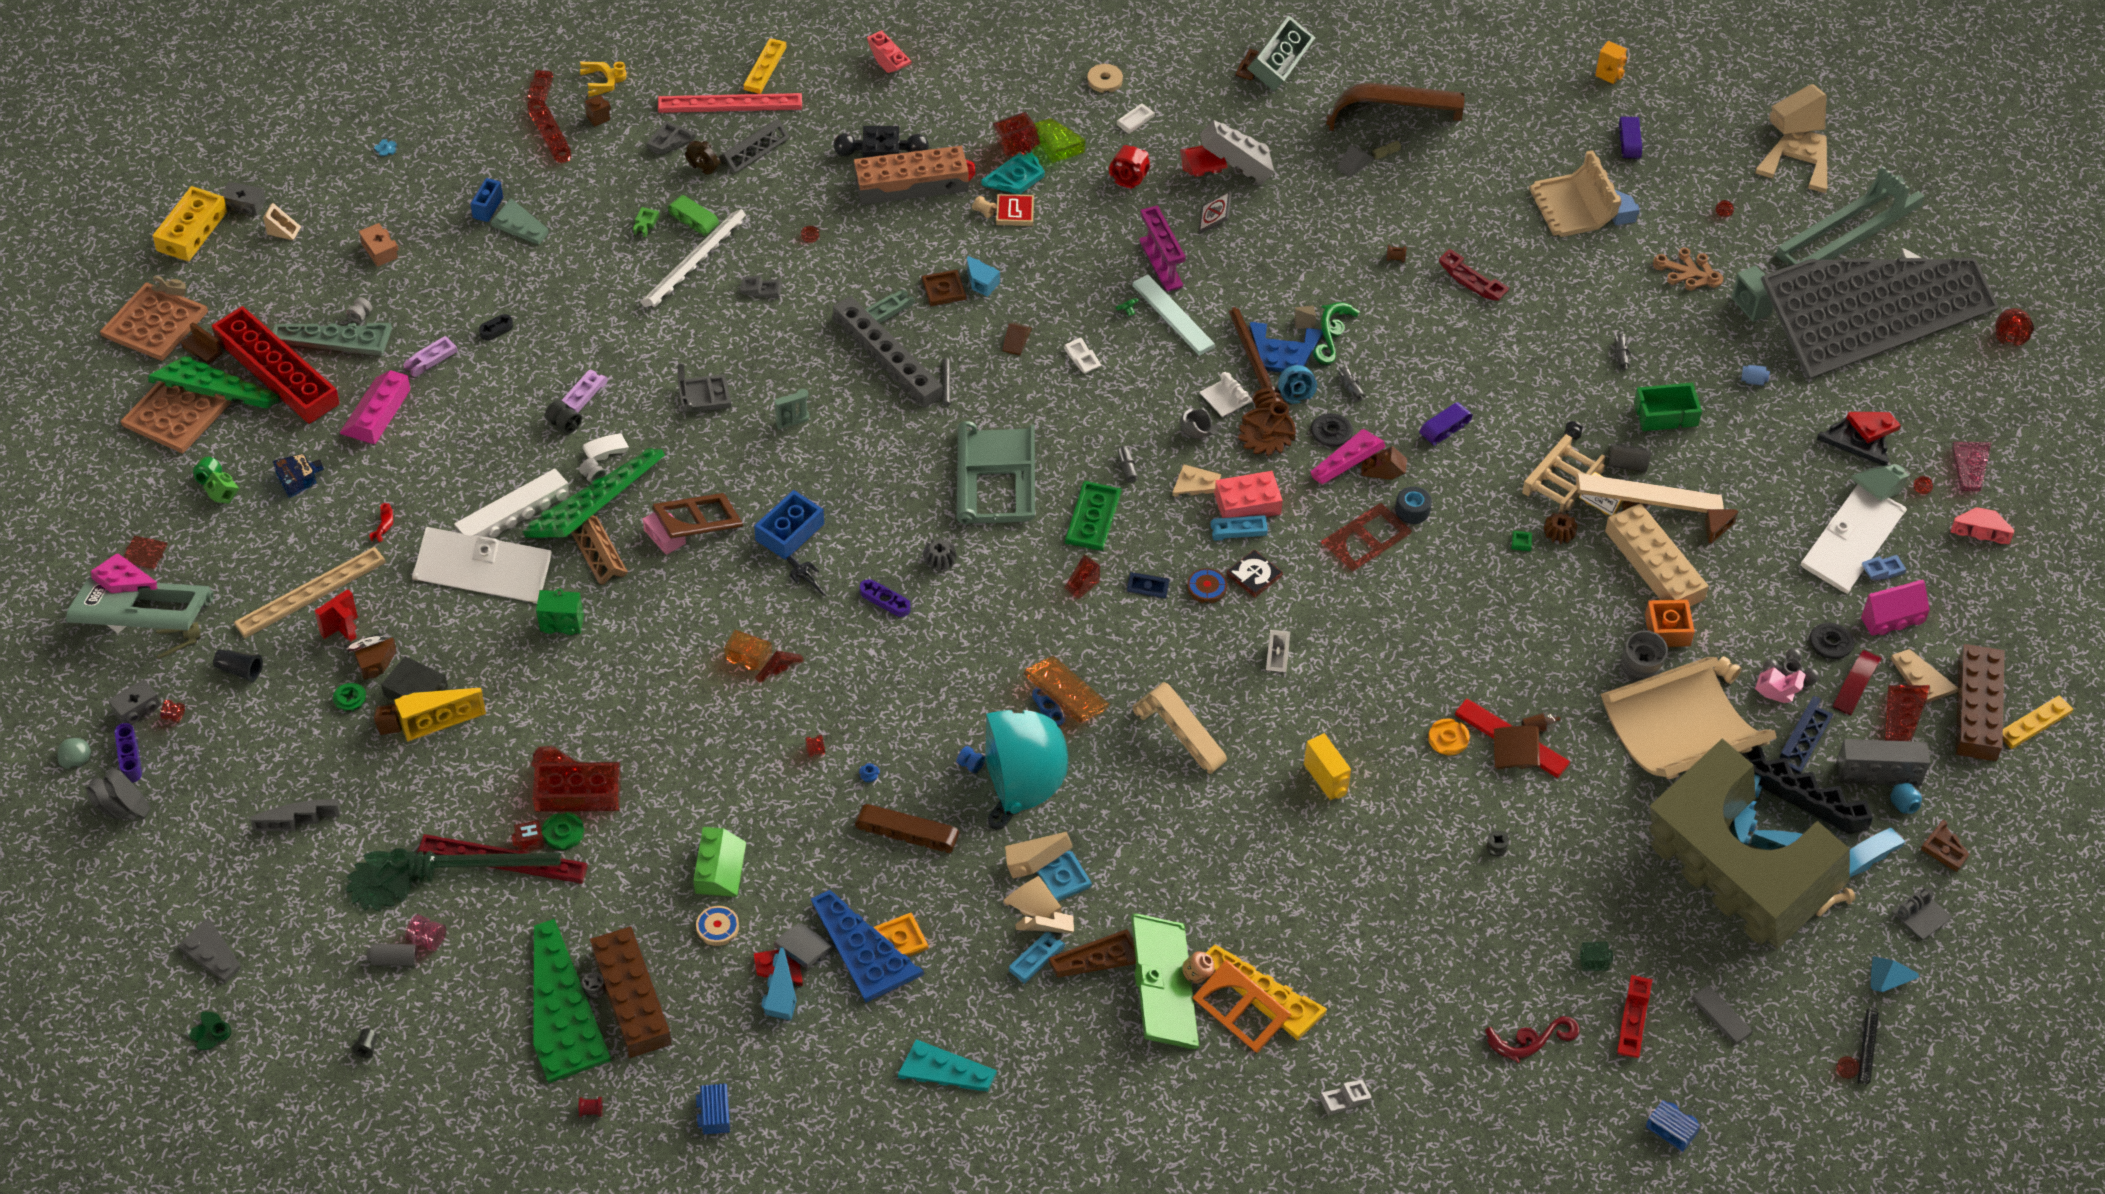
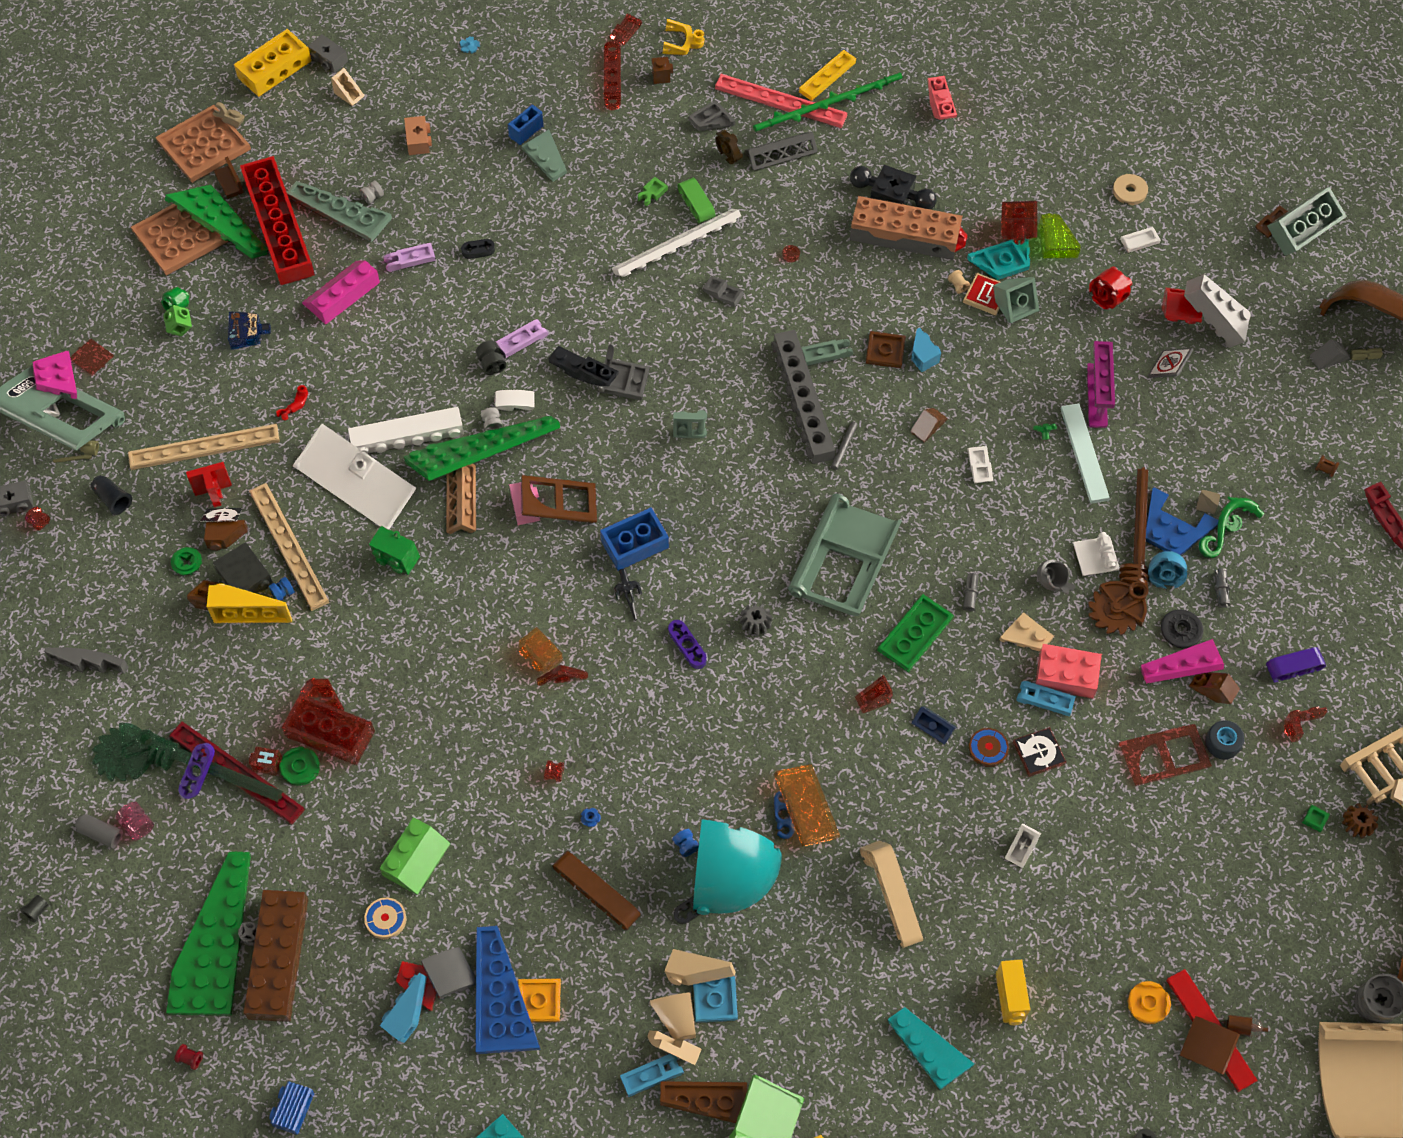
camera: 25 degrees right, 10 degrees up
(447, 649) = (289, 547): none -> tan tile
(463, 681) = (281, 589): none -> blue wheel
(472, 850) = (204, 765): none -> dark purple beam
(660, 398) = (583, 369): none -> black slope
(776, 91) = (833, 98): none -> green plant
(1046, 202) = (1016, 298): none -> sand green slope
(1277, 844) = (932, 1051): none -> teal wing
(1467, 466) = (1292, 722): none -> clear red bracket

